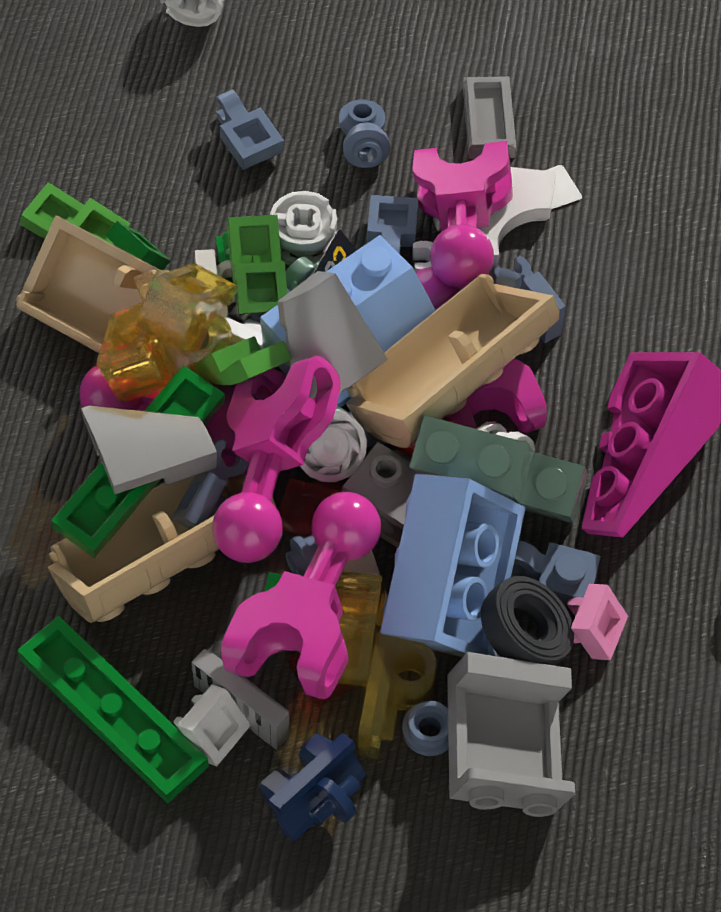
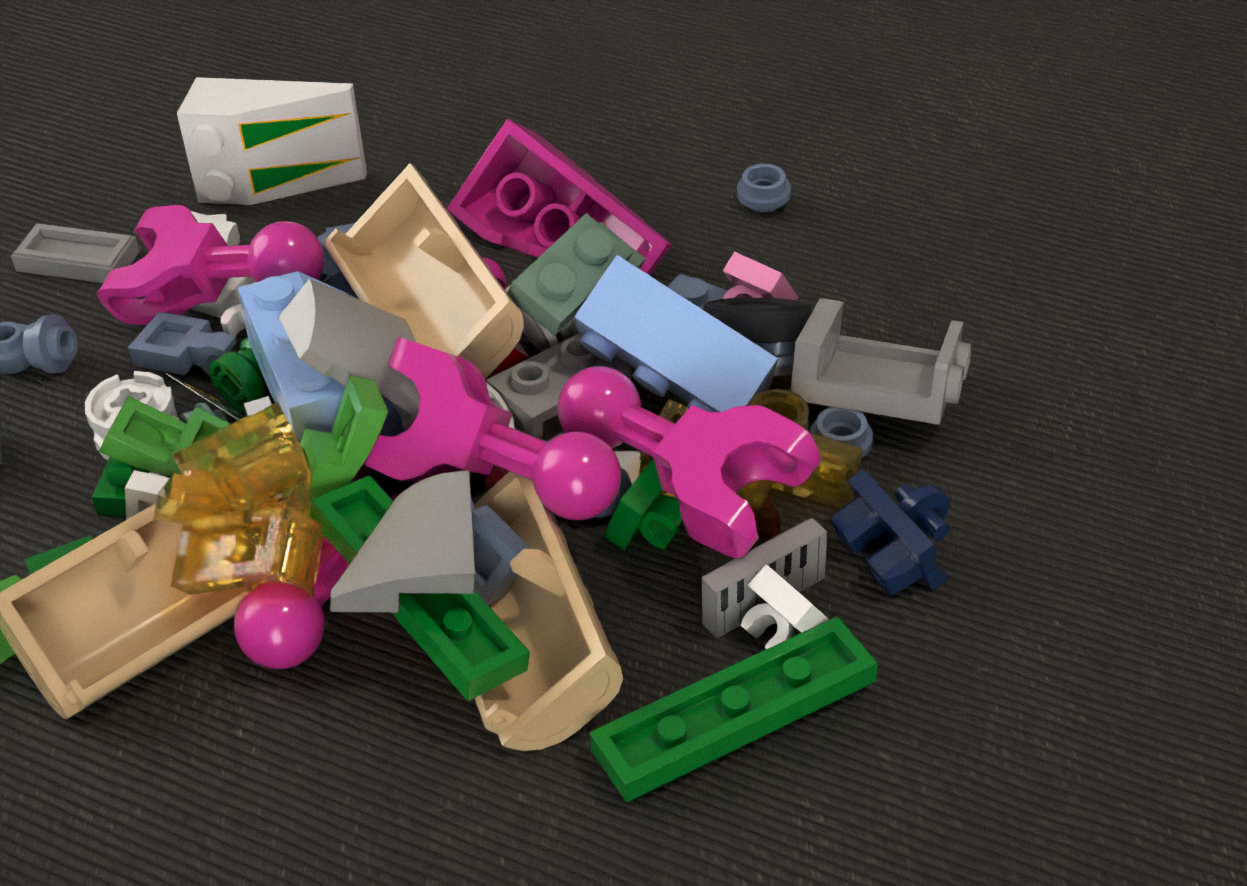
camera: 70 degrees left, 15 degrees down
(642, 184) = (269, 138): none -> white slope

